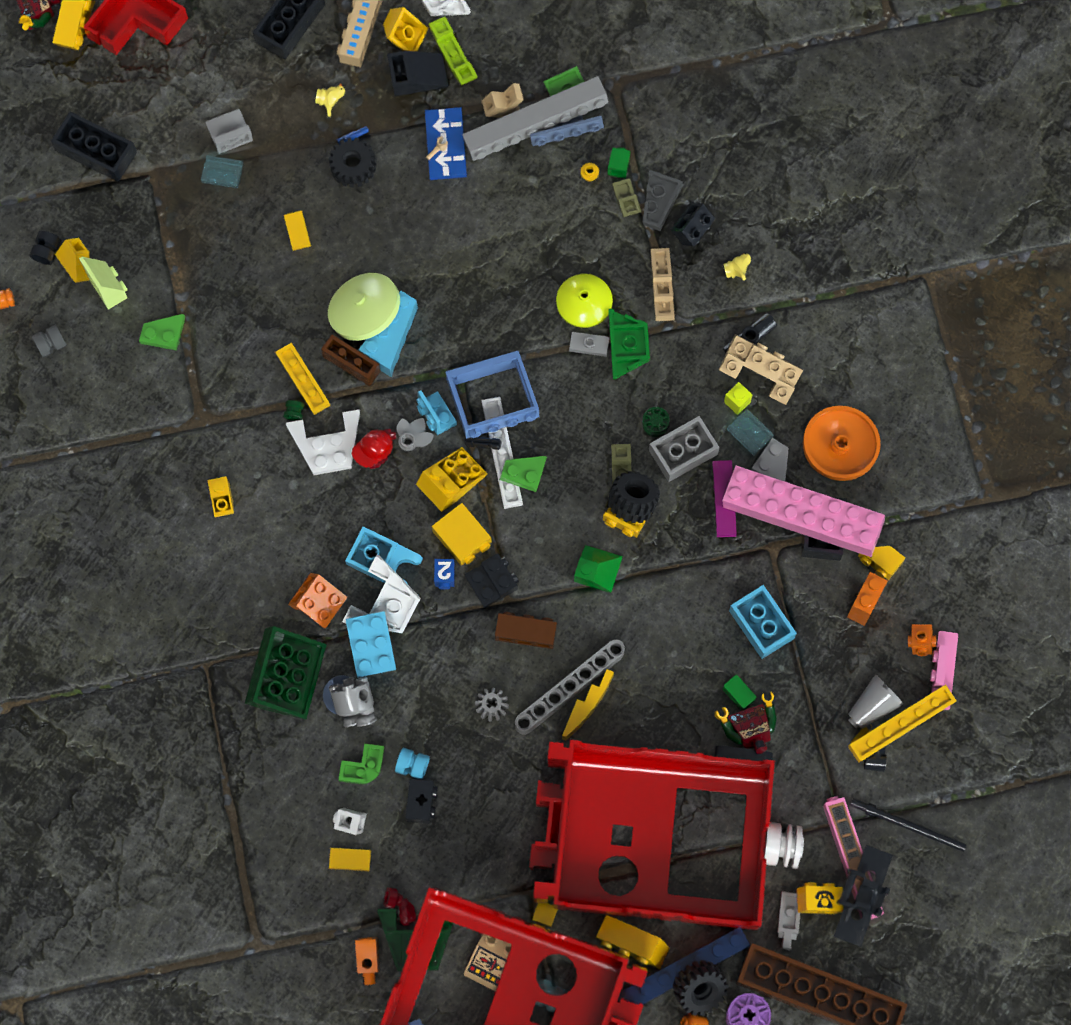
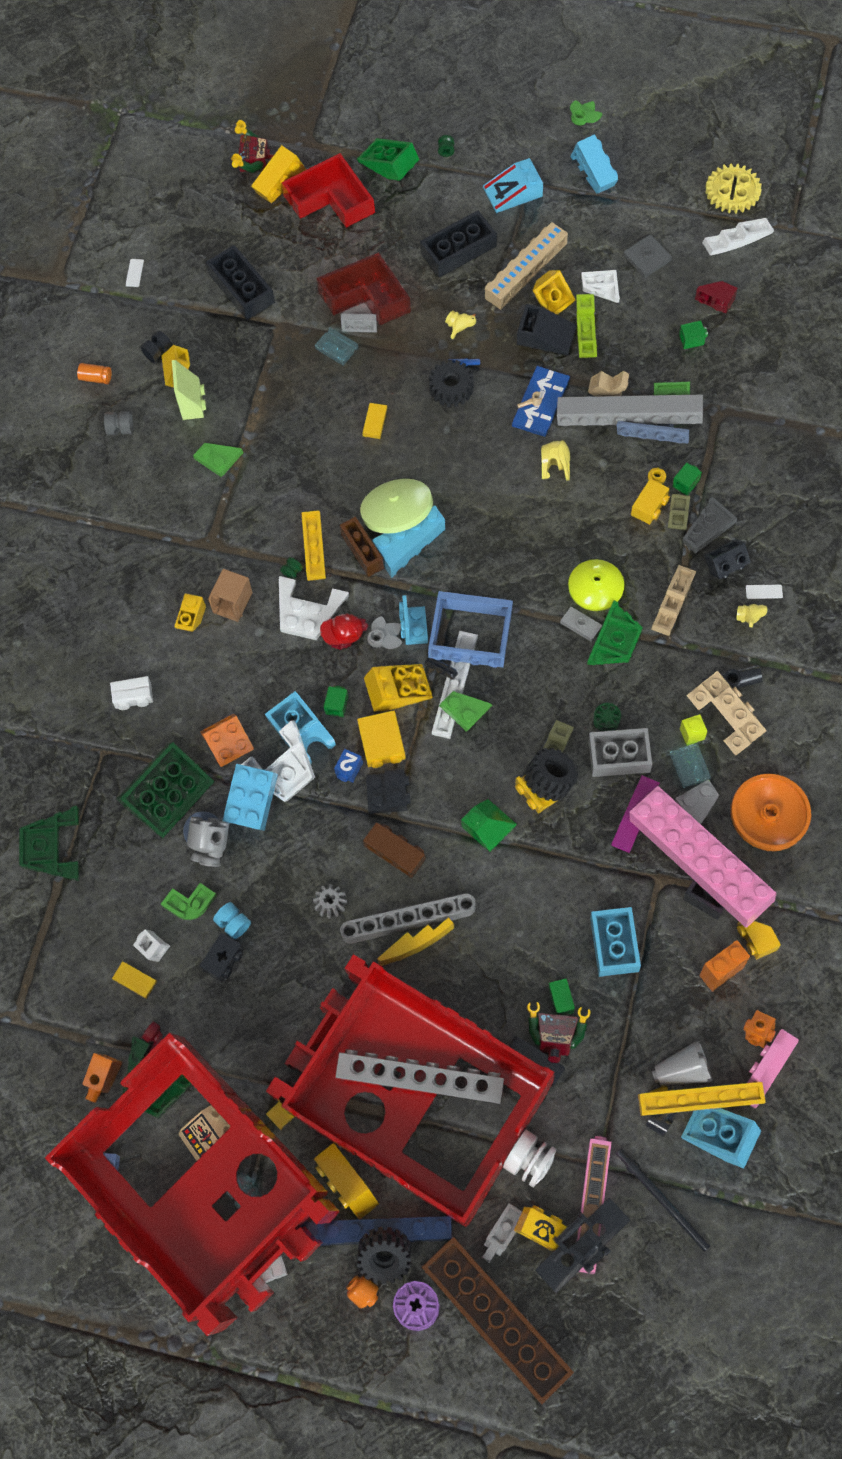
camera: 30 degrees right, 5 degrees down
(197, 781) = (41, 845): none -> dark green wing
(205, 597) = (131, 693): none -> white brick
(219, 95) = (365, 282): none -> clear red piece
(250, 462) = (230, 595): none -> medium nougat piece
(401, 518) = (336, 701): none -> green brick
(489, 190) = (556, 454): none -> light yellow helmet
(556, 17) = (693, 334): none -> green brick
(596, 199) = (650, 501): none -> yellow brick
(723, 805) = (346, 1070): none -> light grey brick
(738, 240) = (763, 591): none -> white sticker
(933, 745) = (722, 1134): none -> medium azure slope

